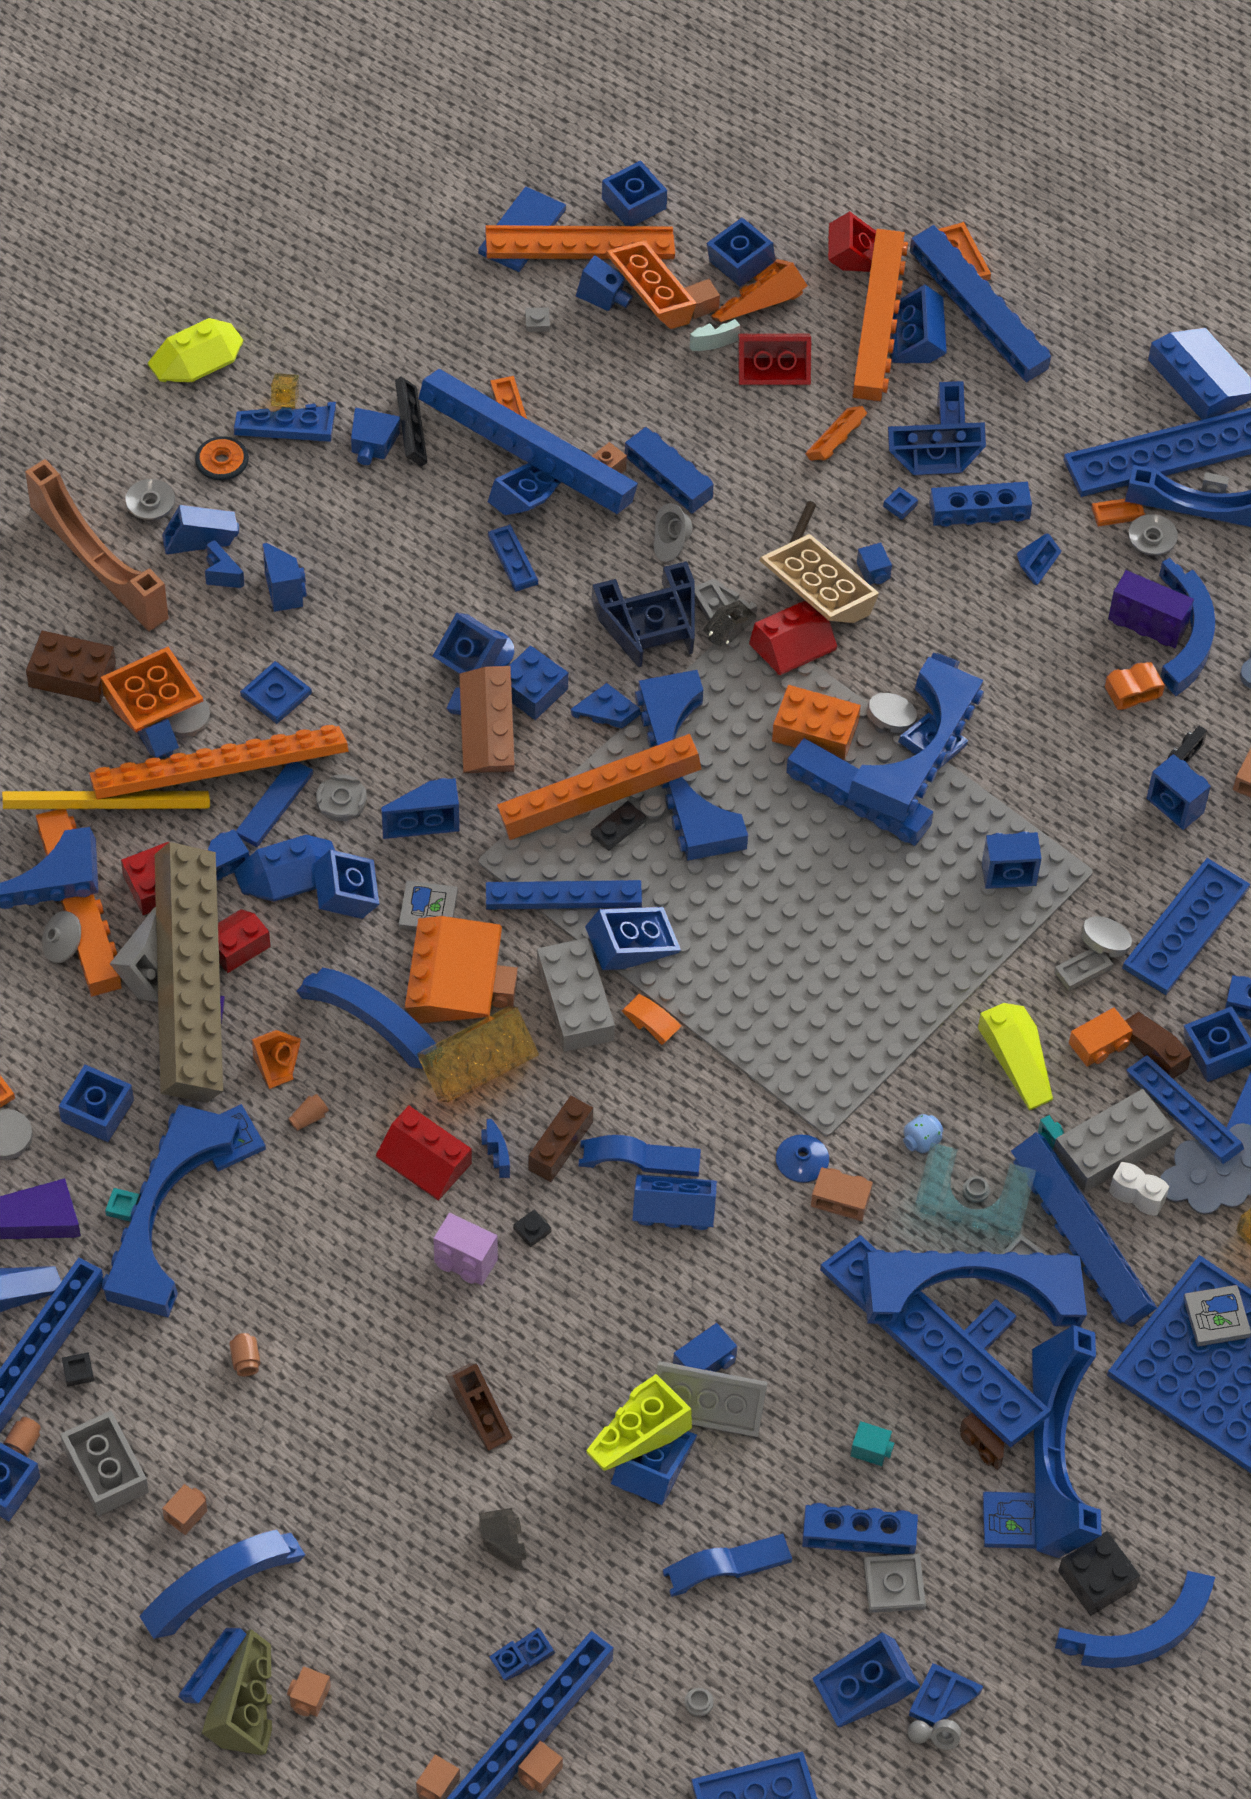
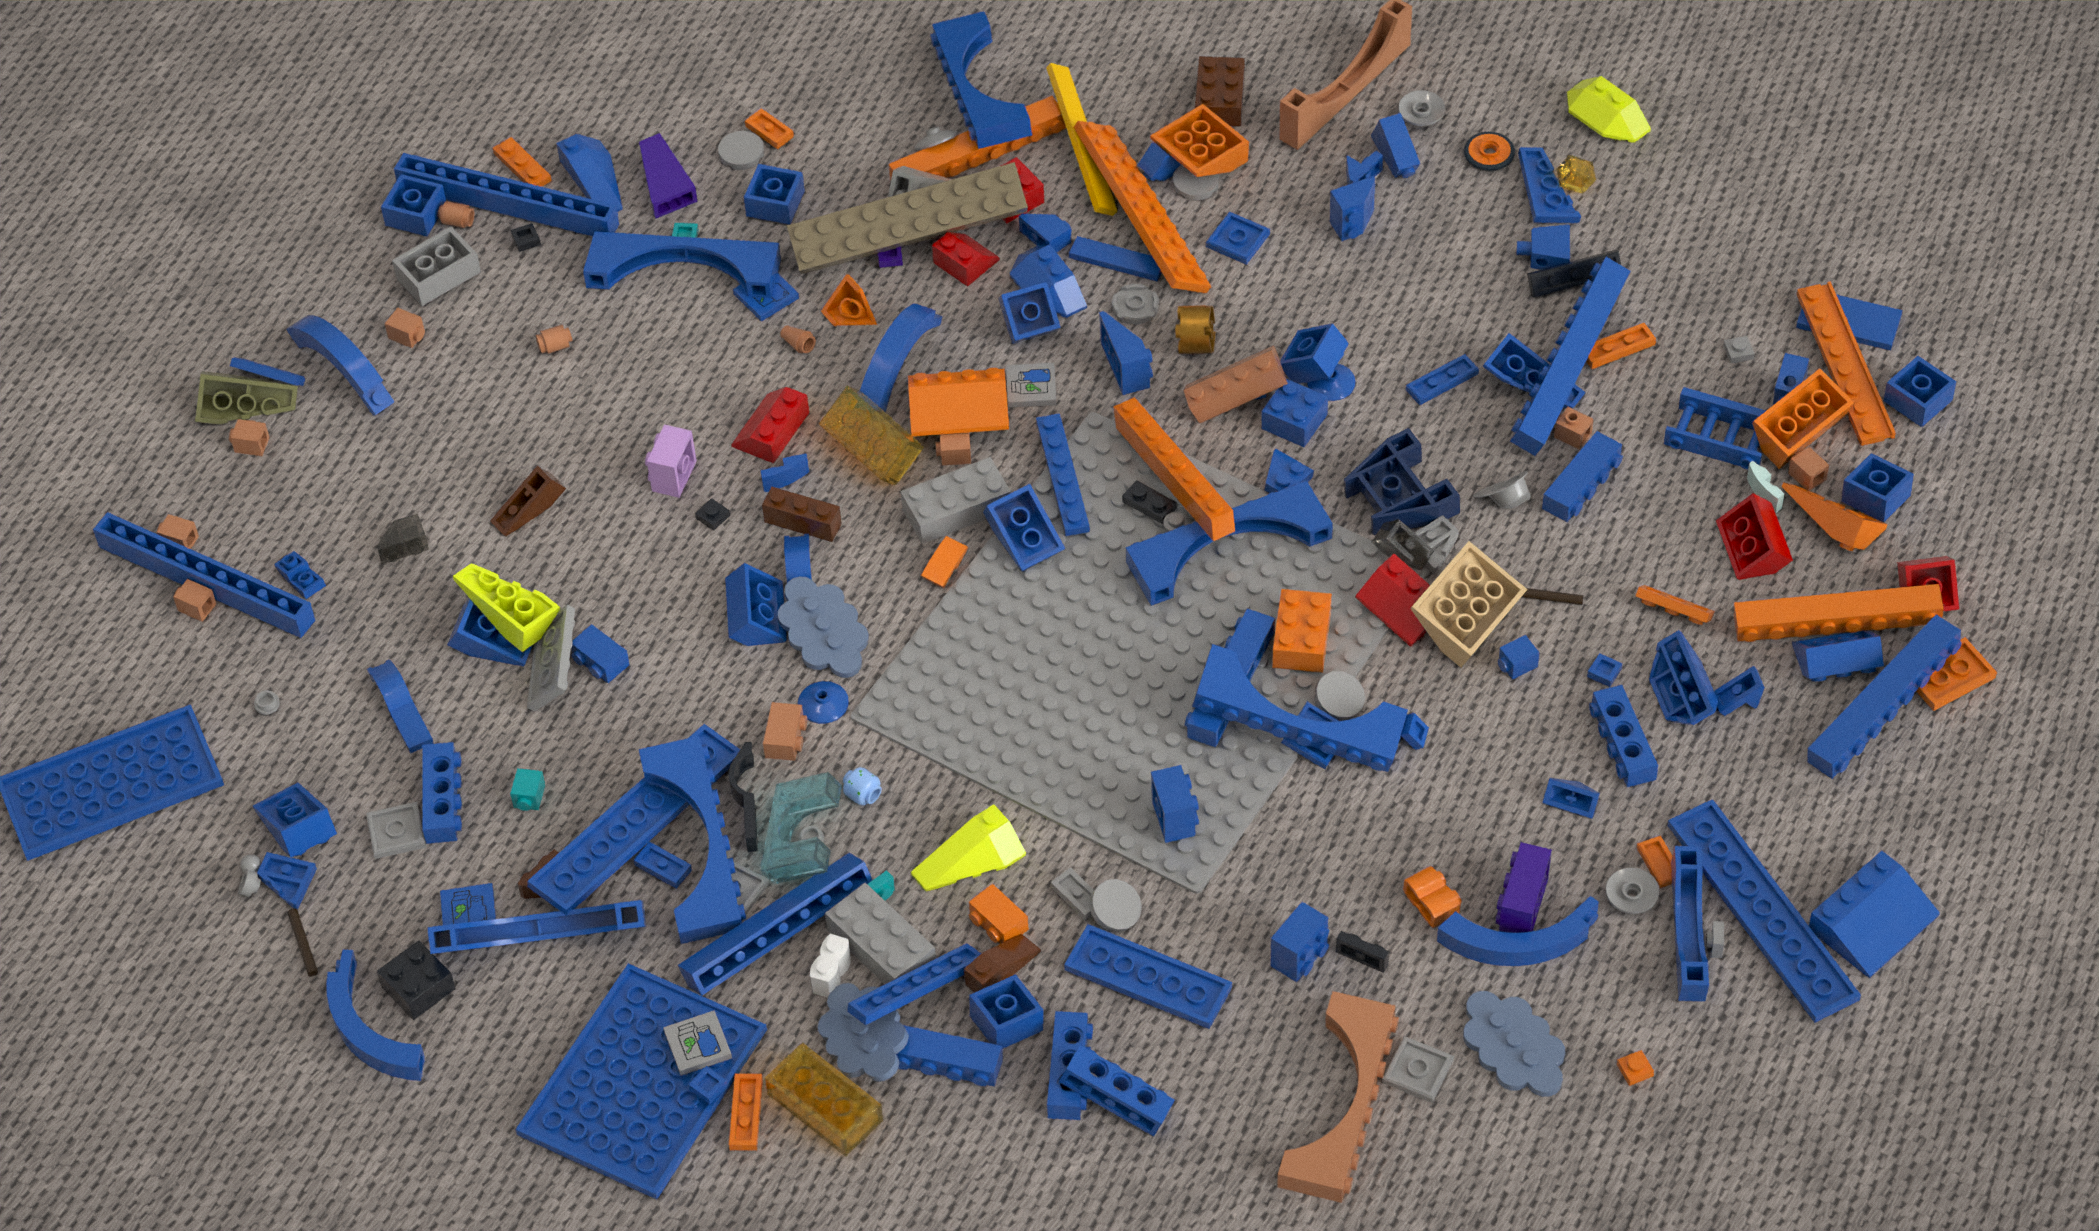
camera: 85 degrees right, 5 degrees down
(406, 742) = (1195, 329): none -> pearl gold brick
(624, 336) = (1715, 409): none -> blue fence
(712, 1140) = (823, 627): none -> sand blue plate
(930, 1238) = (743, 761): none -> black piece
(1025, 1688) = (302, 942): none -> dark brown bar

